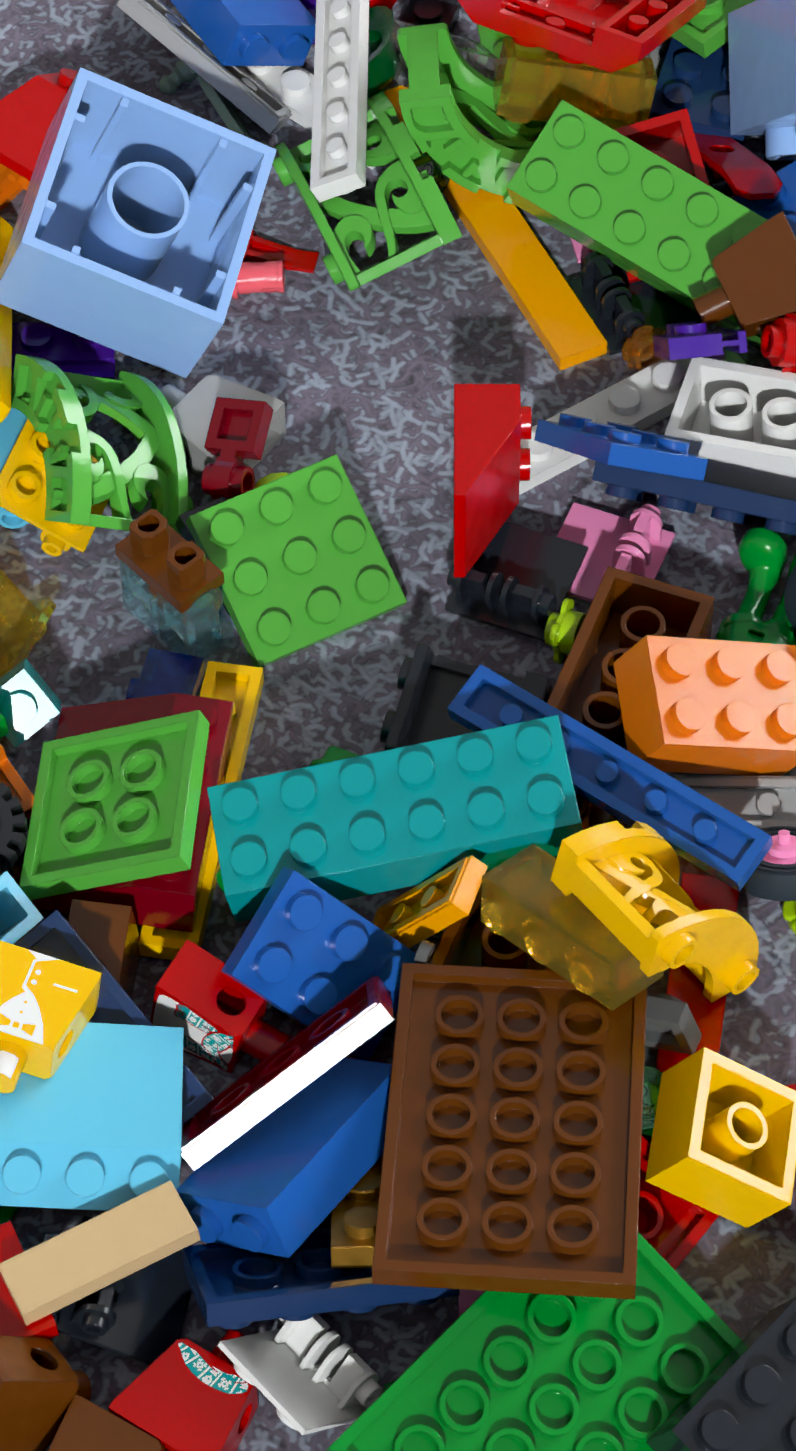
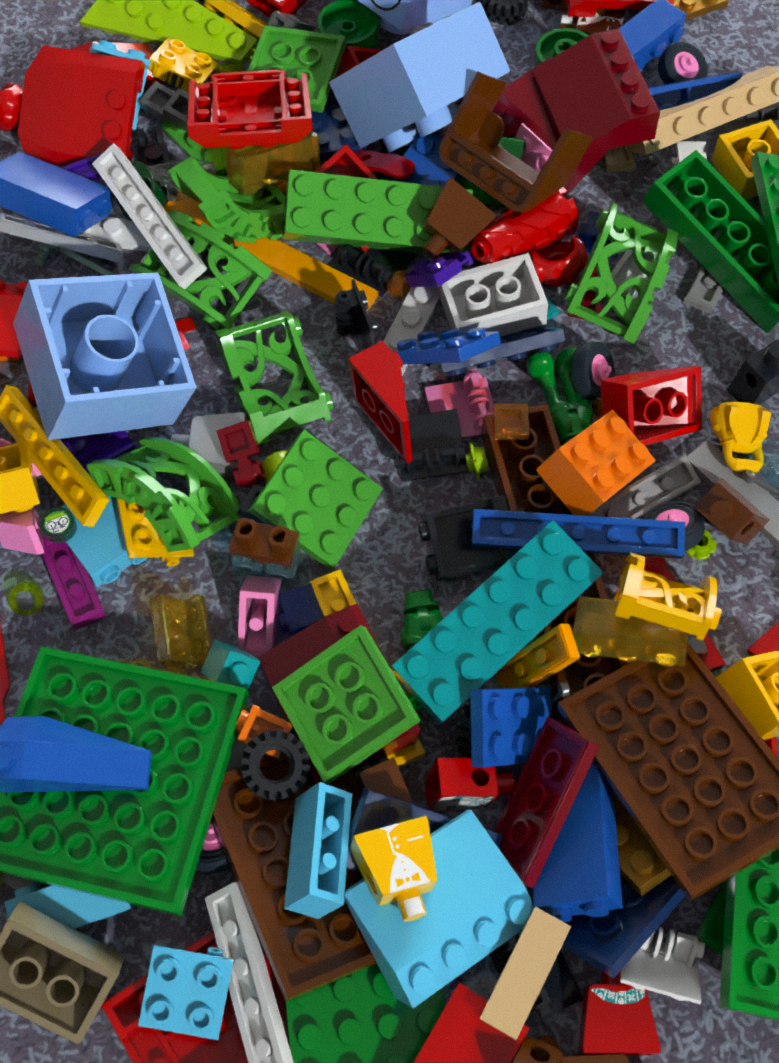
camera: 35 degrees left, 10 degrees up
(110, 656) = (258, 613): none -> bright pink slope
(375, 431) = (239, 353): none -> bright green fence
(531, 347) = (353, 317): none -> black hinge
(633, 587) = (510, 421): none -> clear orange plate

